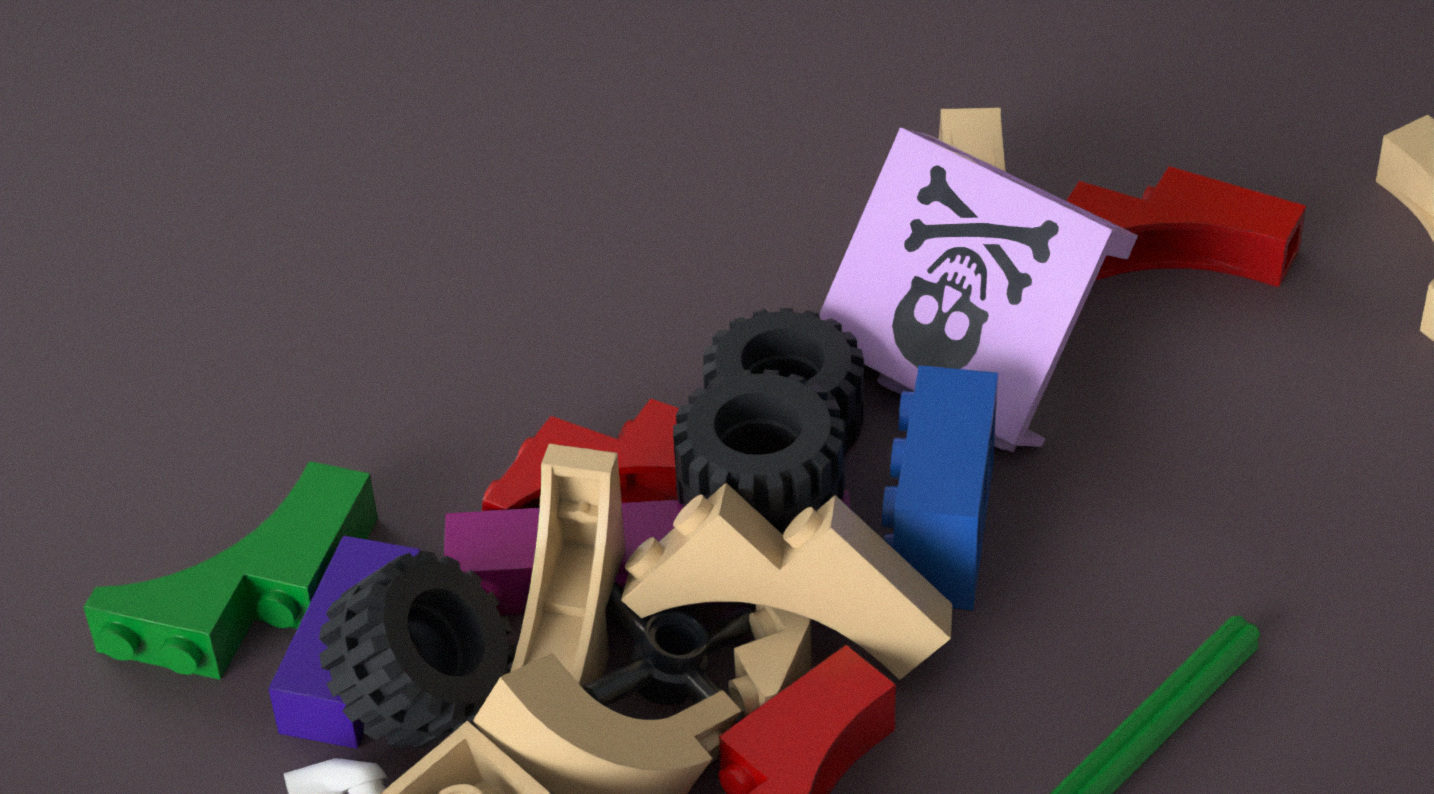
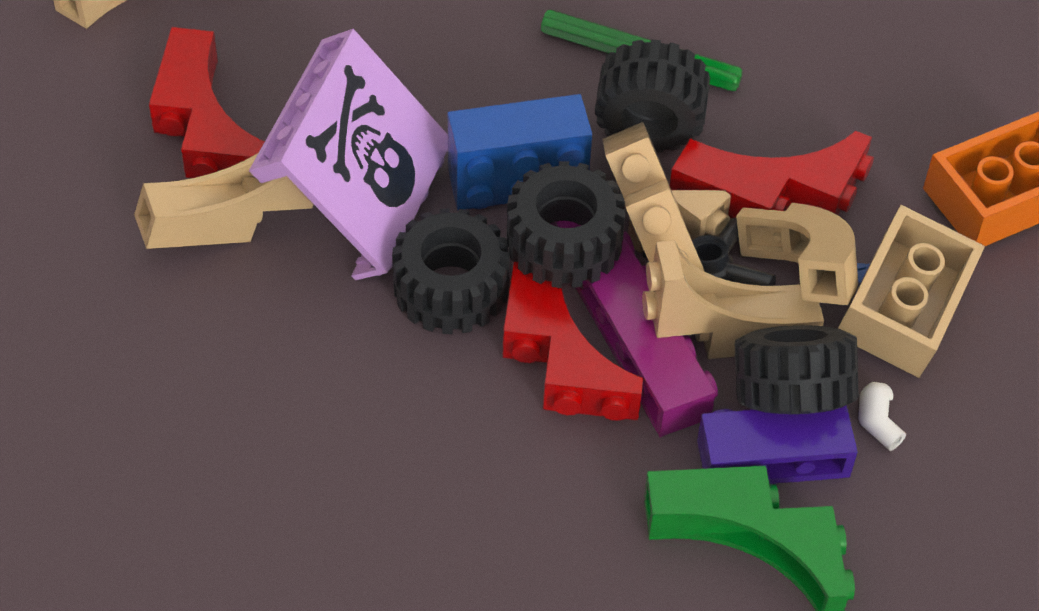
camera: 115 degrees left, 10 degrees up
(983, 648) = (656, 87): none -> black tyre

